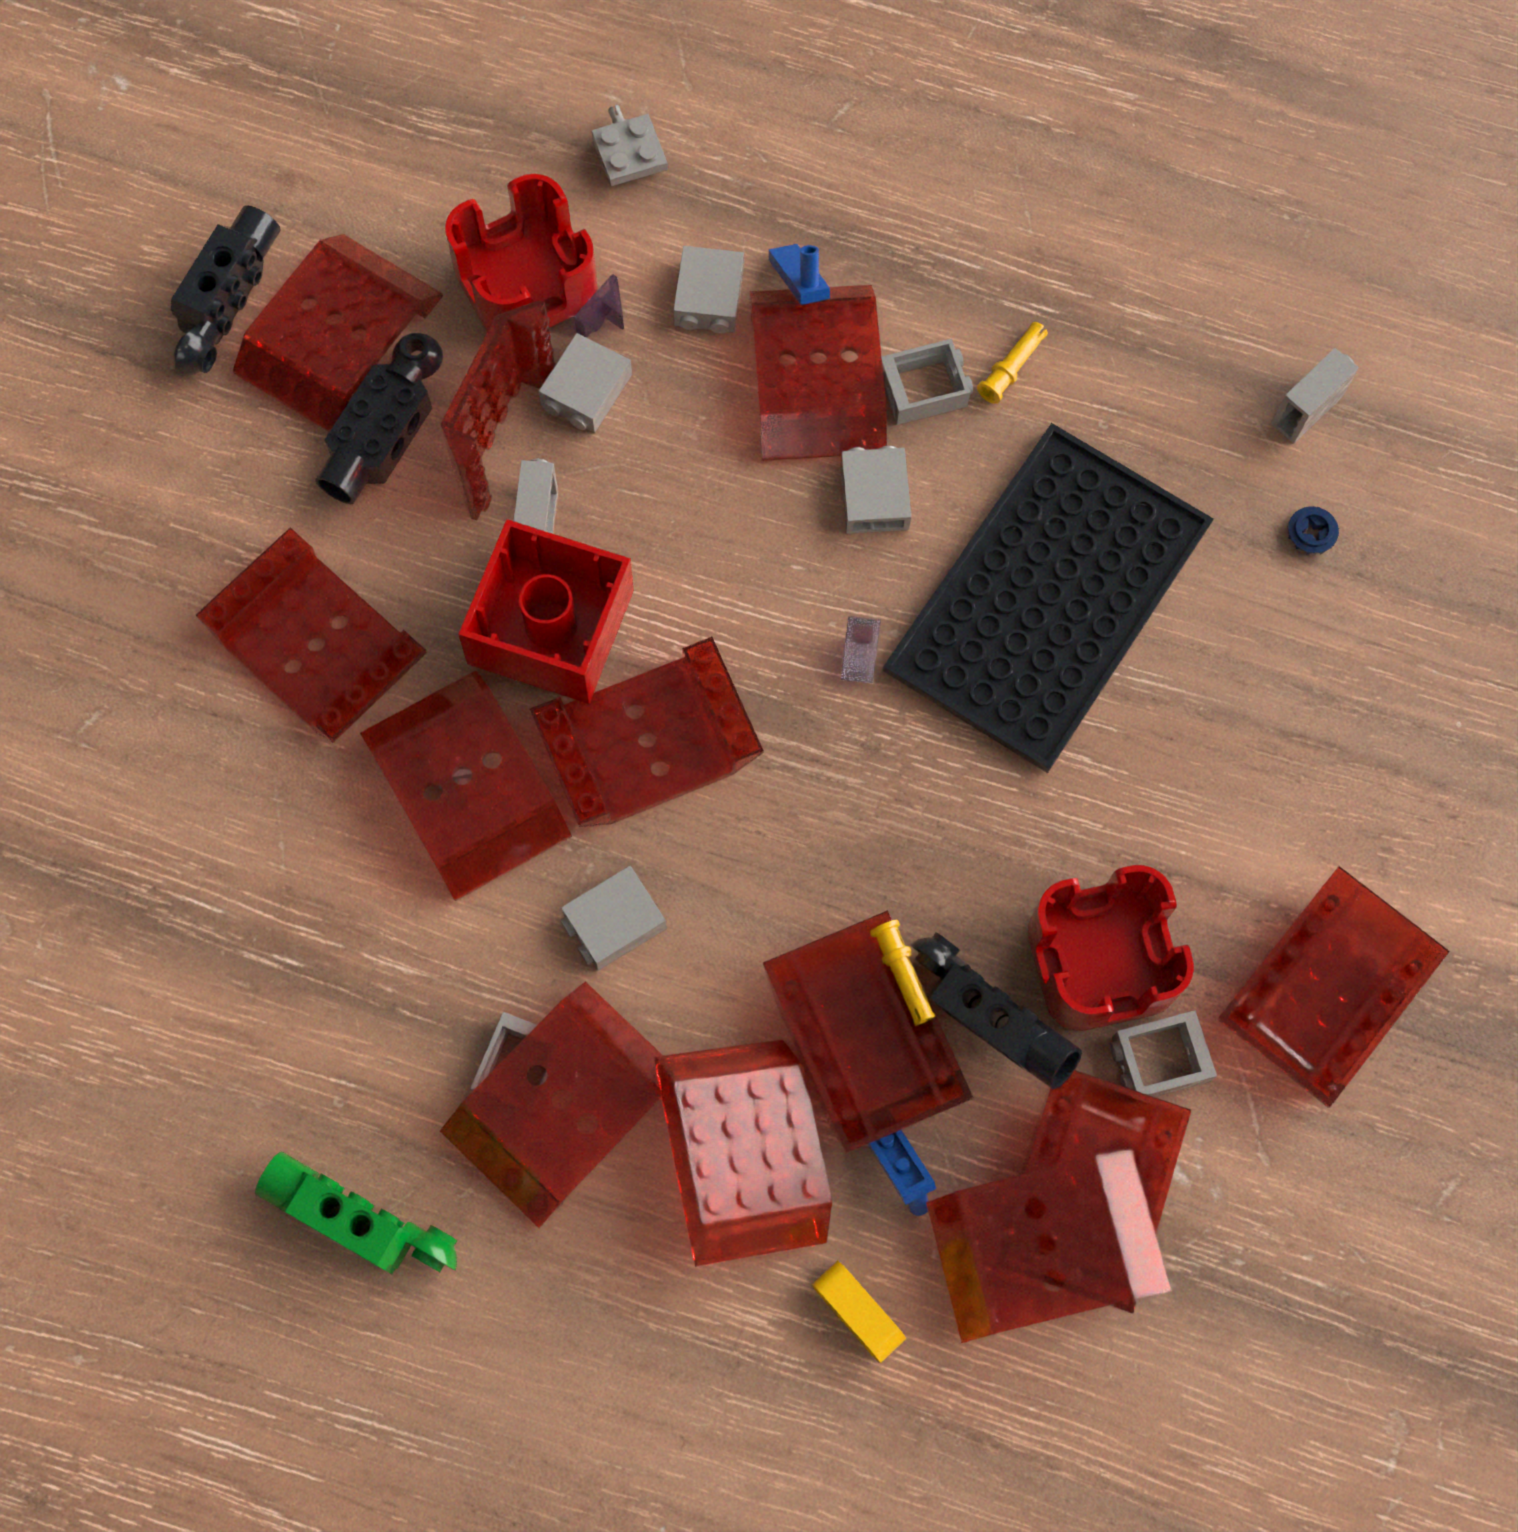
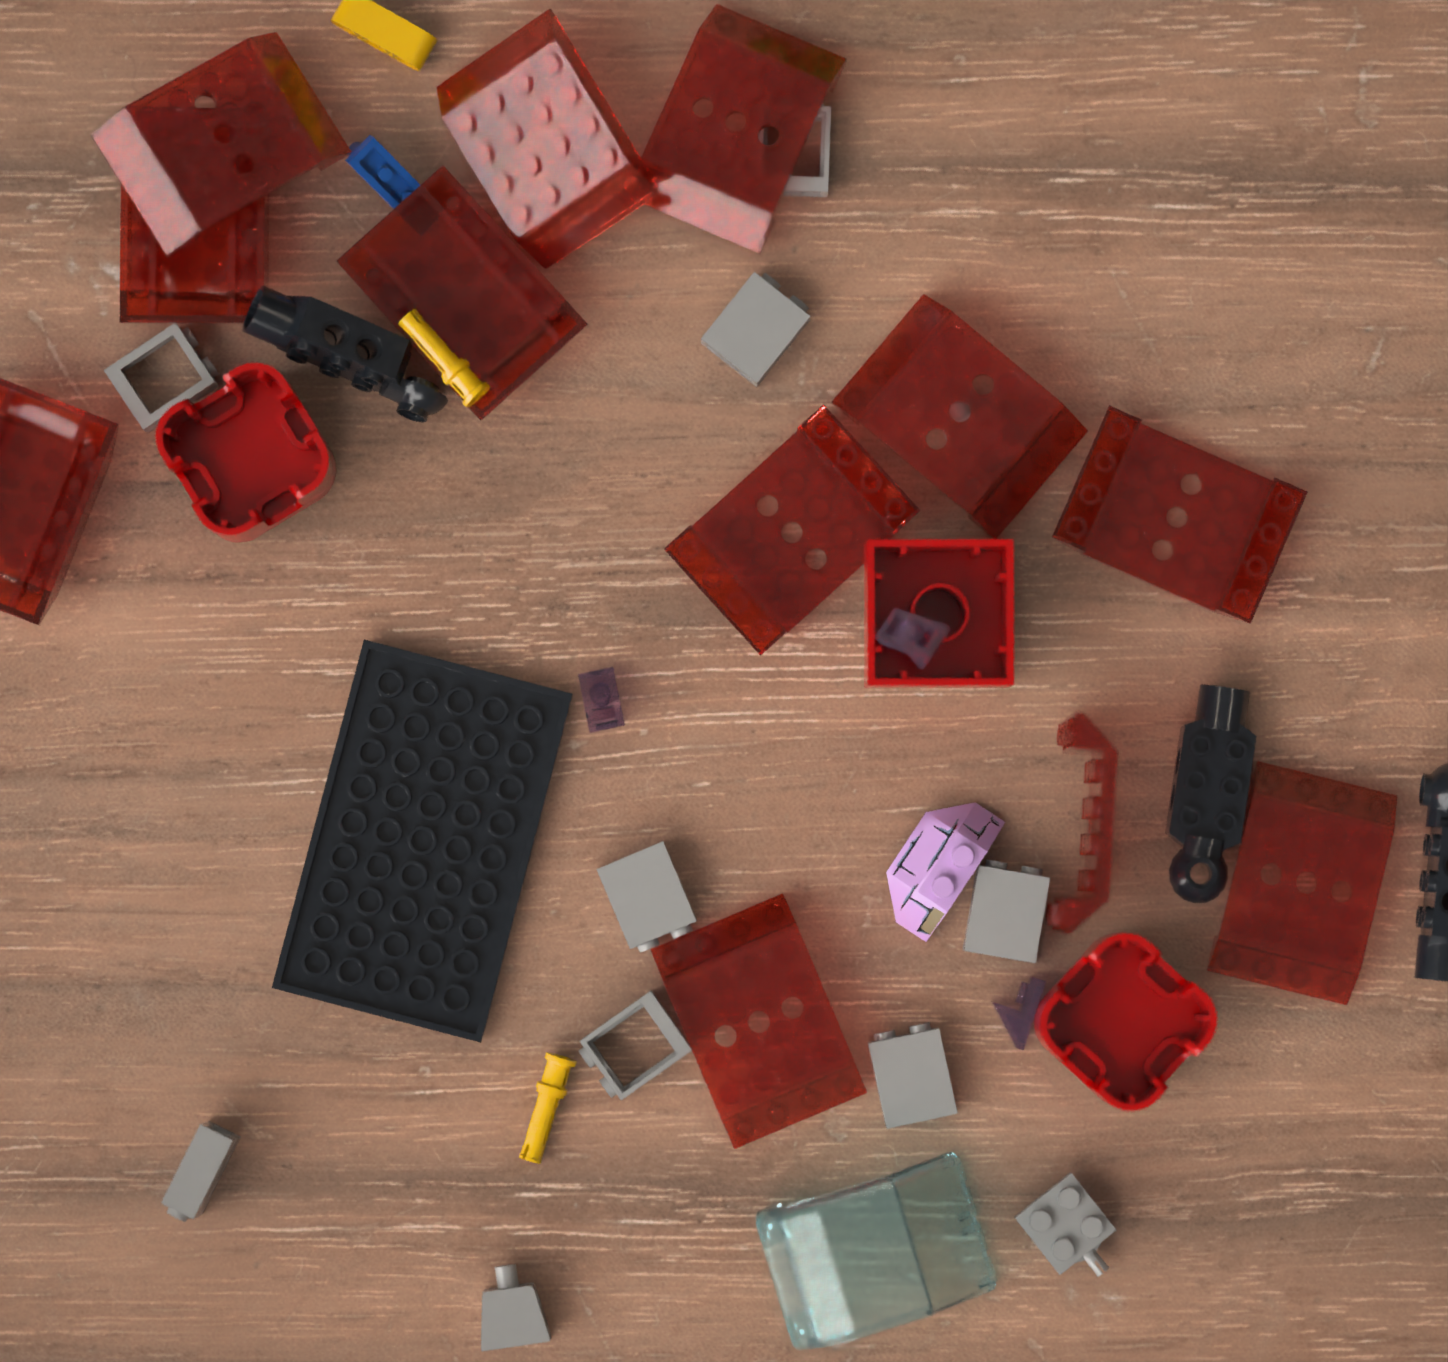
camera: 165 degrees right, 15 degrees up
(537, 495) = (1000, 738): light grey window -> none
(575, 577) = (912, 635): none -> clear purple slope
(621, 437) = (939, 864): none -> lavender wedge
(787, 155) = (876, 1253): none -> clear light blue windscreen
(800, 272) = (816, 1123): blue piece -> none
(1090, 222) = (512, 1313): none -> light grey torso
(1318, 519) = (144, 1012): dark blue gear -> none

